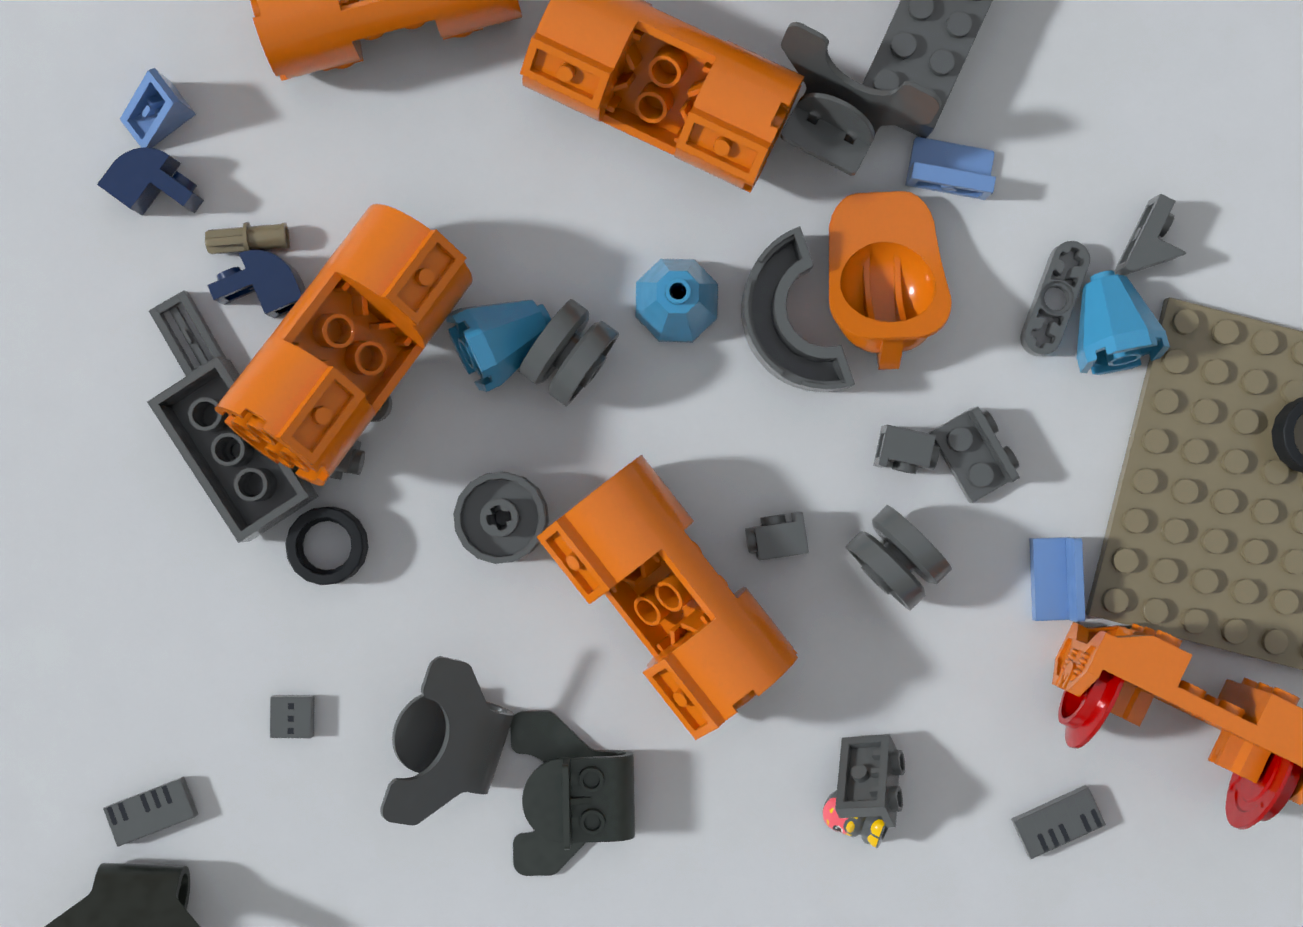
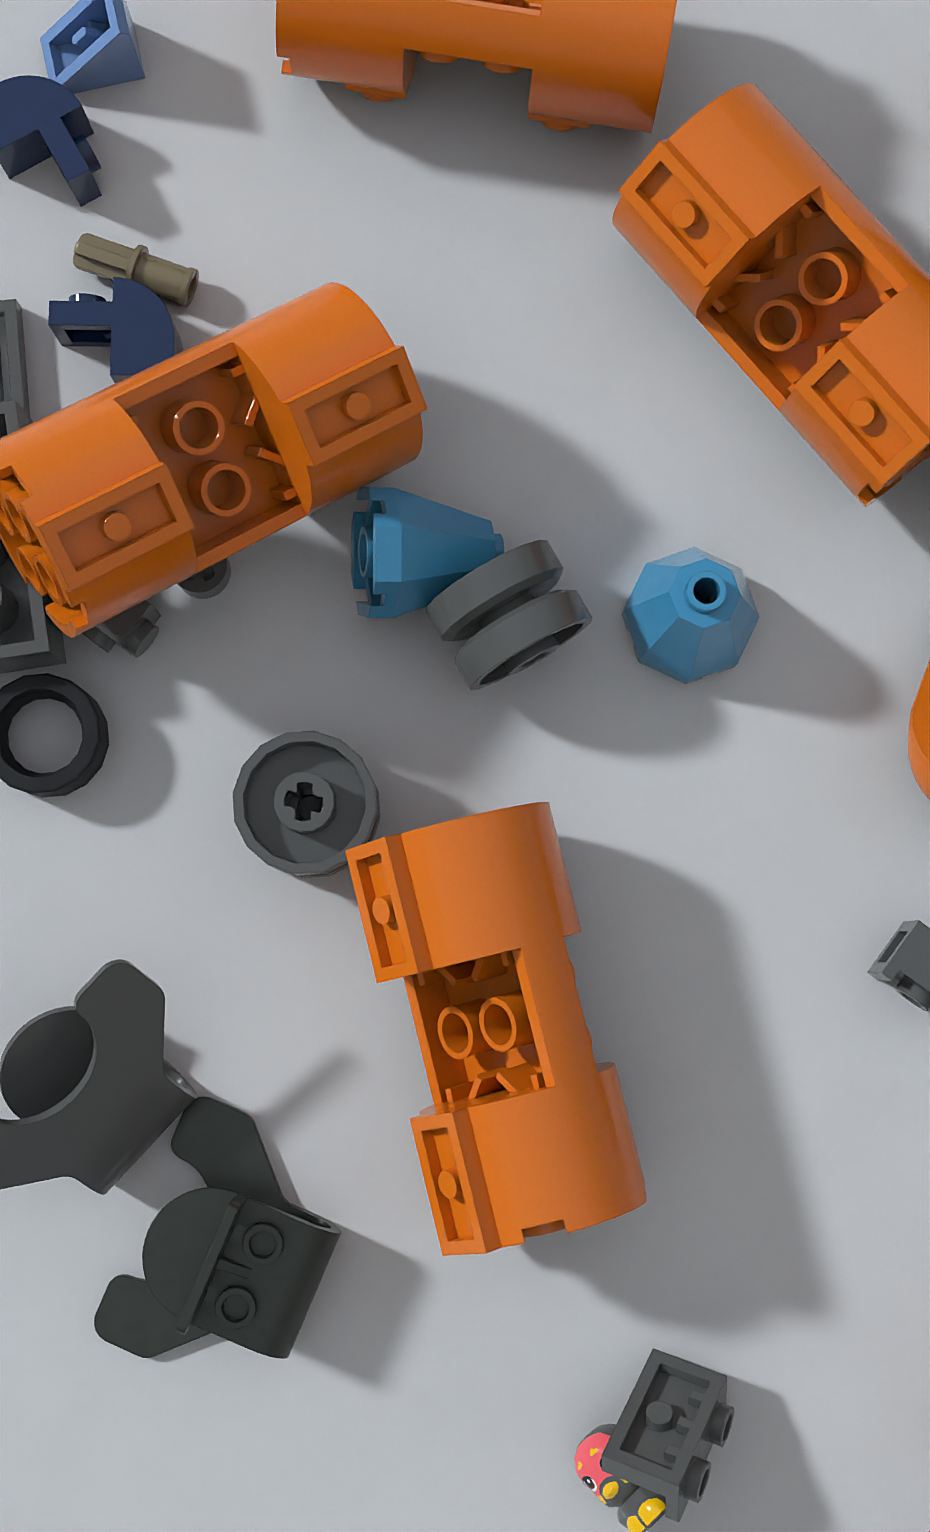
camera: 25 degrees right, 5 degrees down
(768, 327) = (808, 719): dark grey brick -> none
(777, 537) = (689, 1013): dark grey brick -> none
(901, 554) = (855, 1120): dark grey wheel -> none

